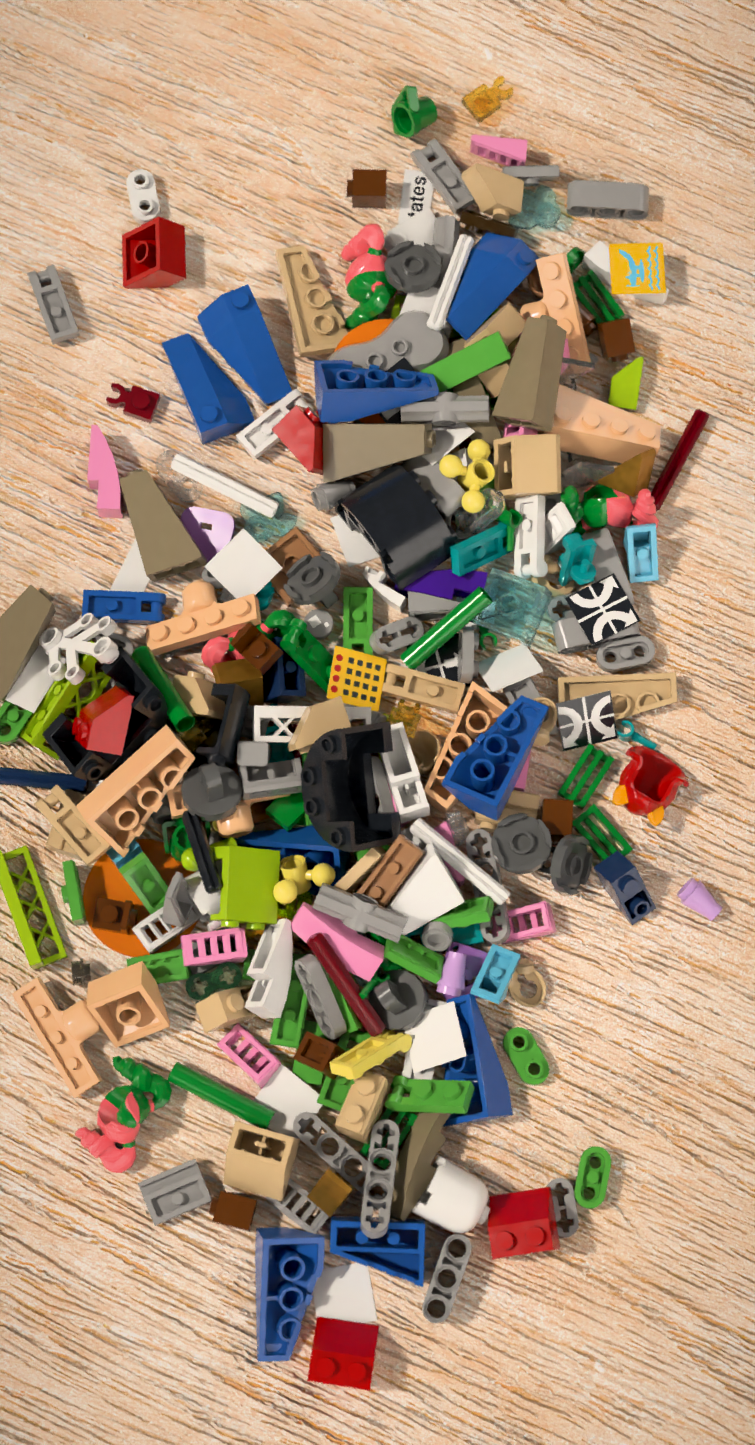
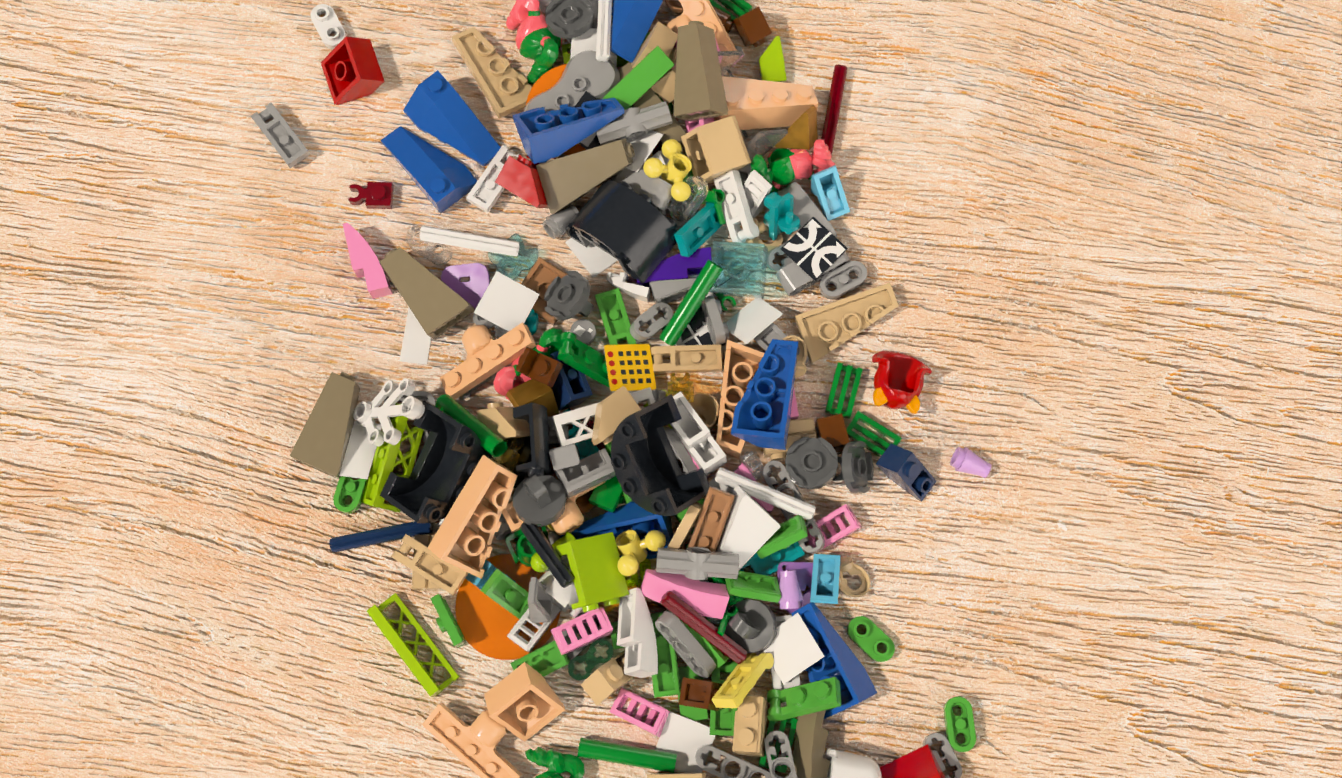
camera: 15 degrees left, 0 degrees up
(80, 972) = (475, 687): clear smoke plate -> none
(105, 722) = (430, 468): slope -> none
(114, 916) = (489, 629): reddish brown bracket -> none
(124, 605) = (416, 366): blue plate -> none
(437, 936) = (766, 562): light grey tile -> none
(586, 720) = (830, 344): sticker -> none
(634, 736) = (872, 345): teal hand -> none

